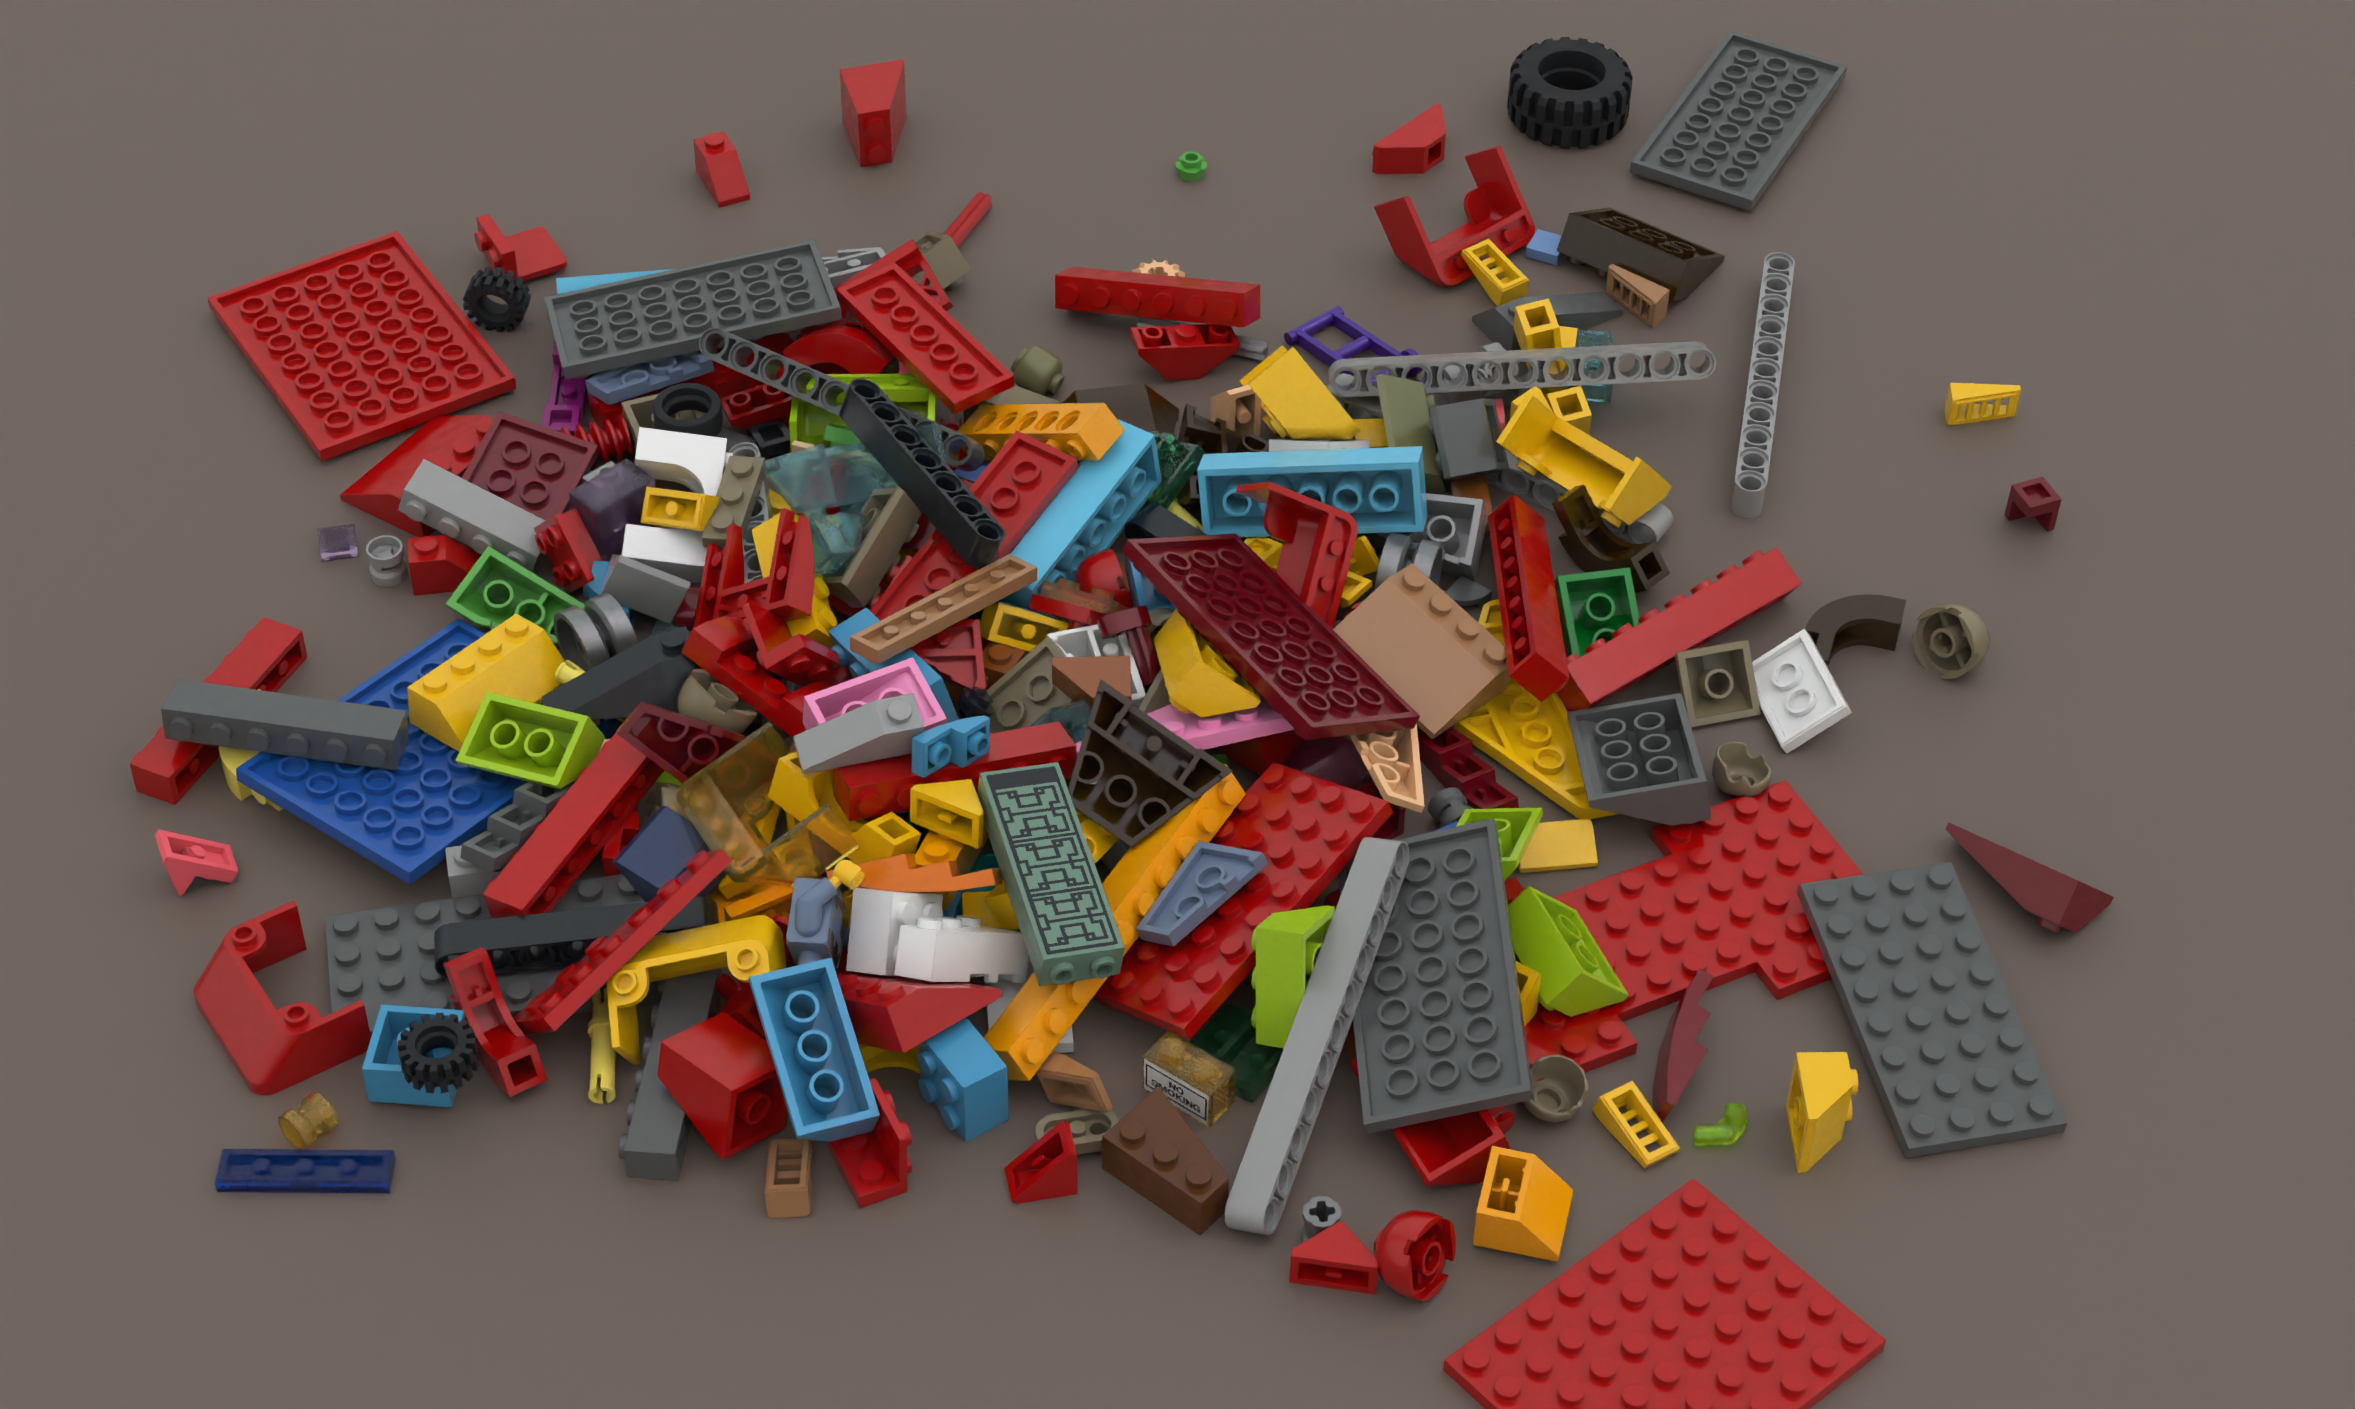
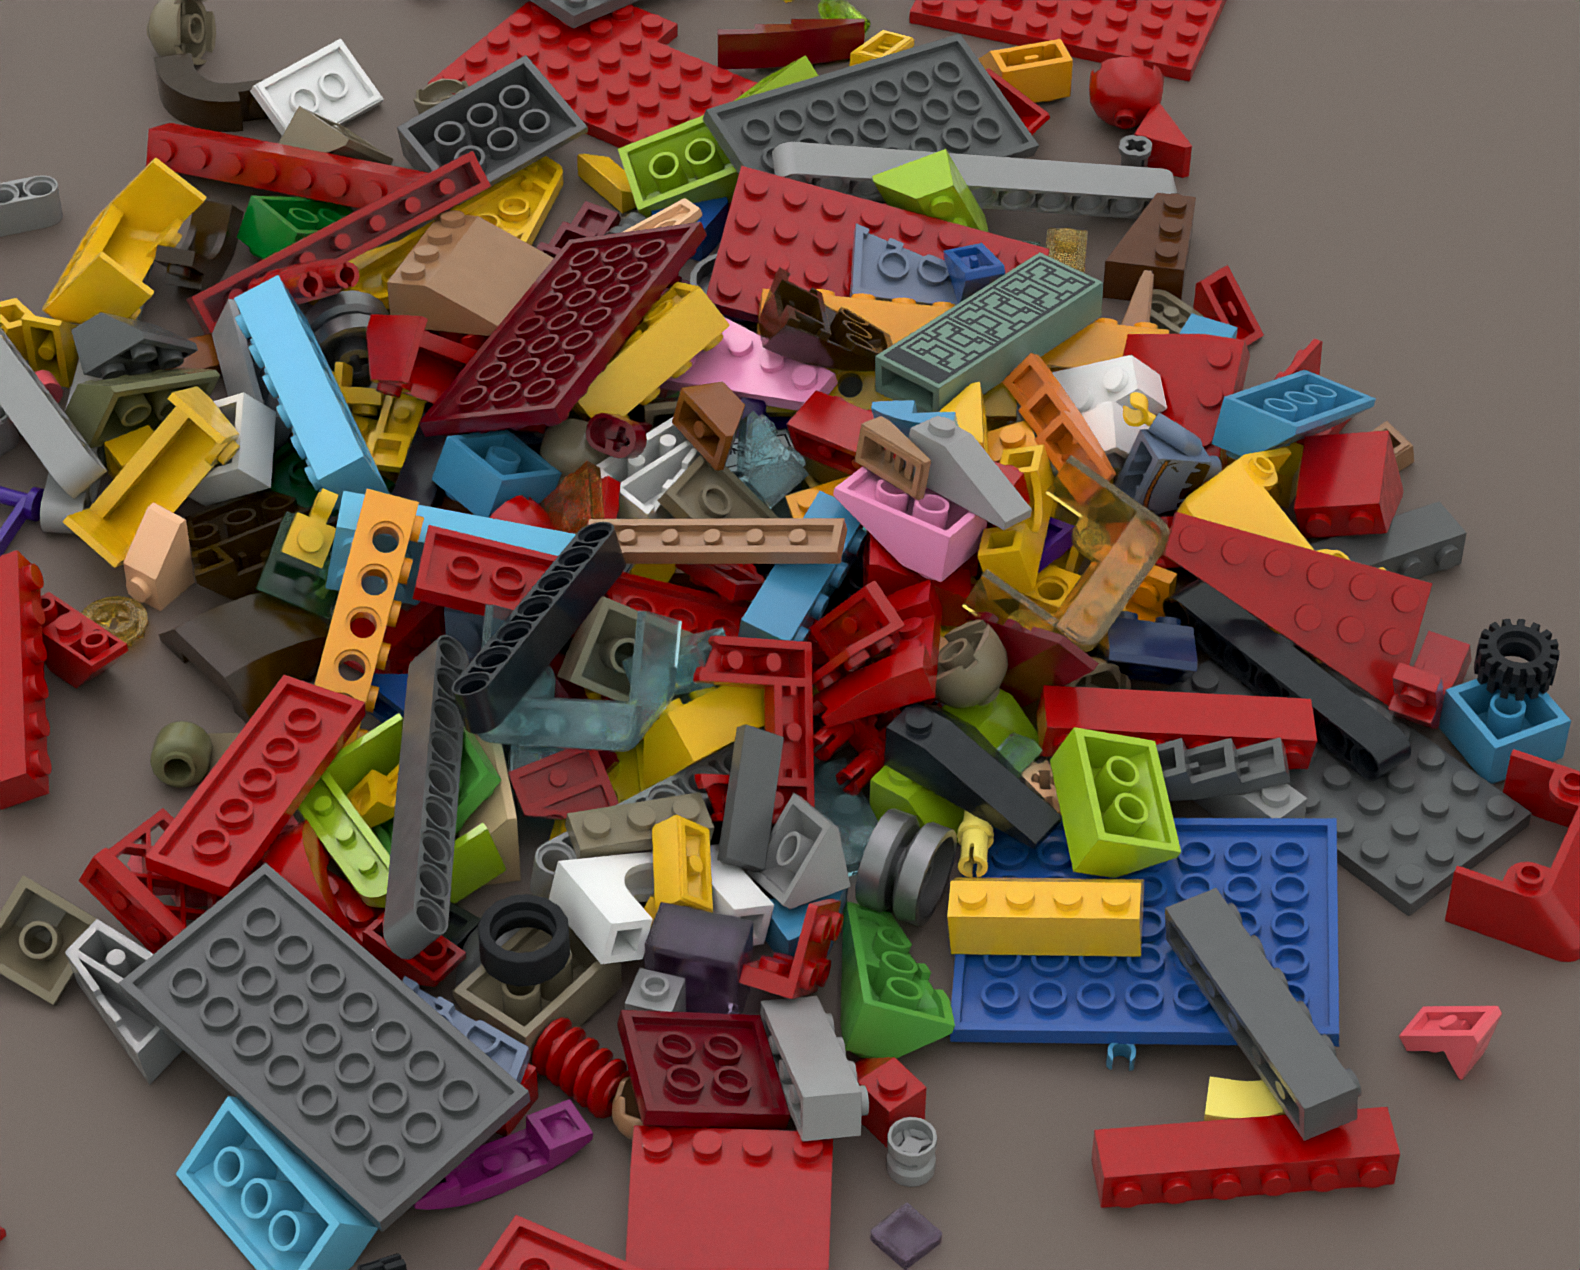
camera: 120 degrees left, 0 degrees up
(707, 560) = (750, 798): none -> dark grey tile
(931, 694) = (870, 454): none -> medium nougat slope
(1149, 914) = (972, 269): none -> blue slope
(1175, 457) = (311, 536): none -> yellow plate
(1198, 381) = (128, 613): none -> clear yellow gear
(1451, 523) = (313, 279): none -> red pin

